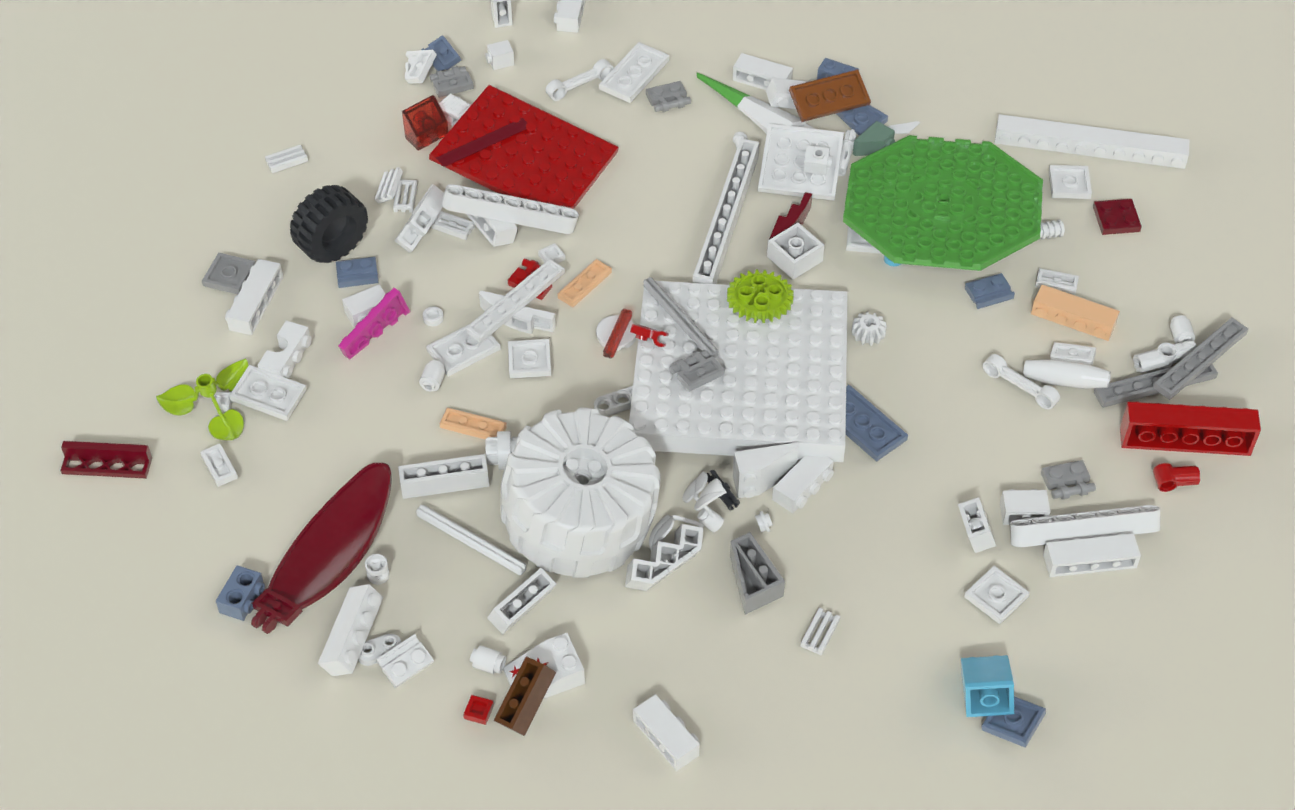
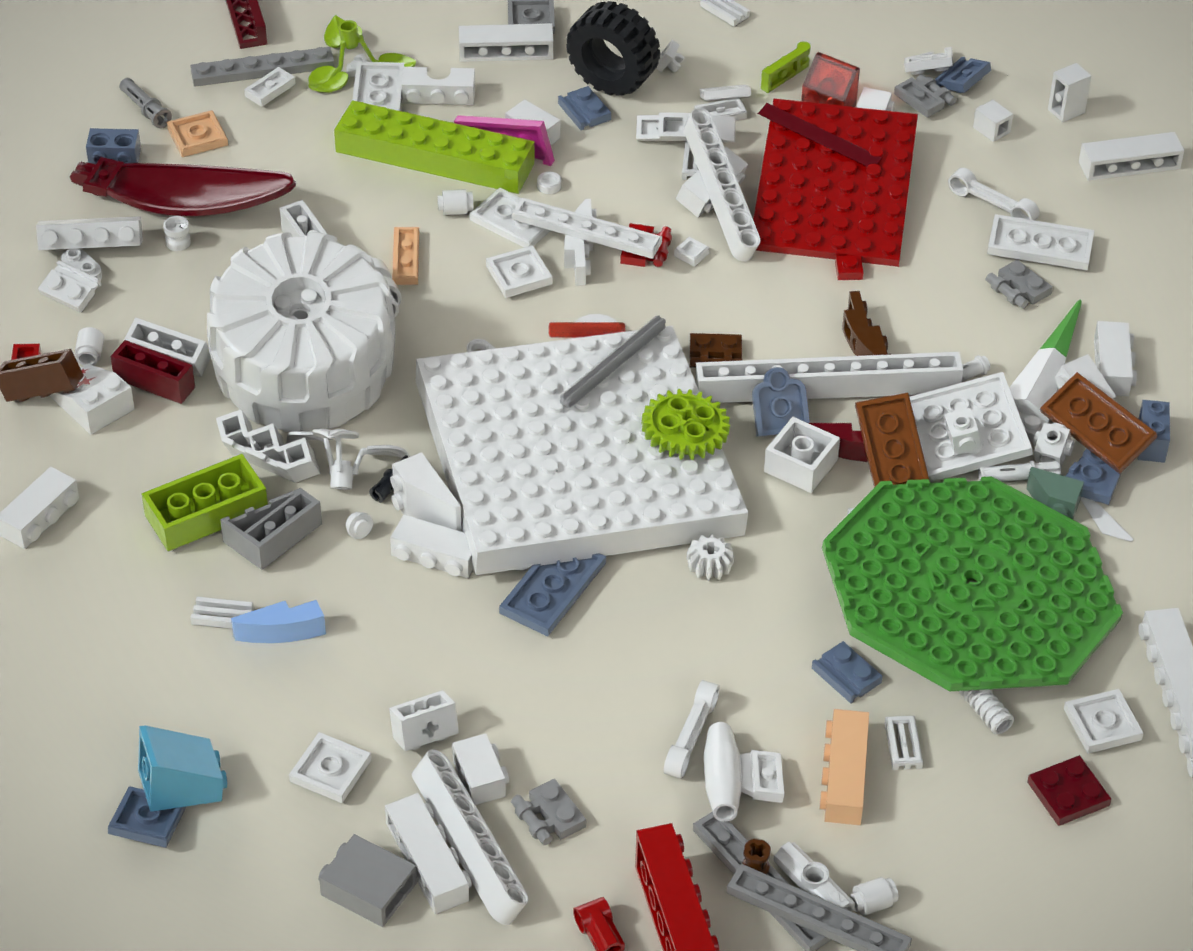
camera: 70 degrees right, 5 degrees down
(183, 467) = (259, 66): none -> light grey plate
(198, 555) = (150, 107): none -> light grey pin
(247, 531) = (197, 133): none -> light nougat tile
(359, 373) = (434, 146): none -> lime brick
(380, 142) = (786, 67): none -> lime plate
(546, 617) = (153, 371): none -> dark red brick
(584, 283) = (662, 289): light nougat tile -> none
(610, 176) = (849, 267): none -> red plate
(644, 333) = (570, 333): red plate -> none
(661, 265) = (714, 348): none -> reddish brown plate
(694, 188) = (858, 330): none -> reddish brown slope
(703, 371) = (529, 389): light grey plate -> none
(710, 612) = (197, 502): none -> lime brick
(744, 247) = (778, 401): none -> sand blue plate
(811, 200) = (891, 439): none -> dark orange tile
(834, 122) = (1052, 443): none -> white brick
(848, 591) = (280, 623): none -> light blue slope
(1107, 595) = (367, 880): none -> light grey brick
(1151, 372) = (757, 855): none -> reddish brown bush

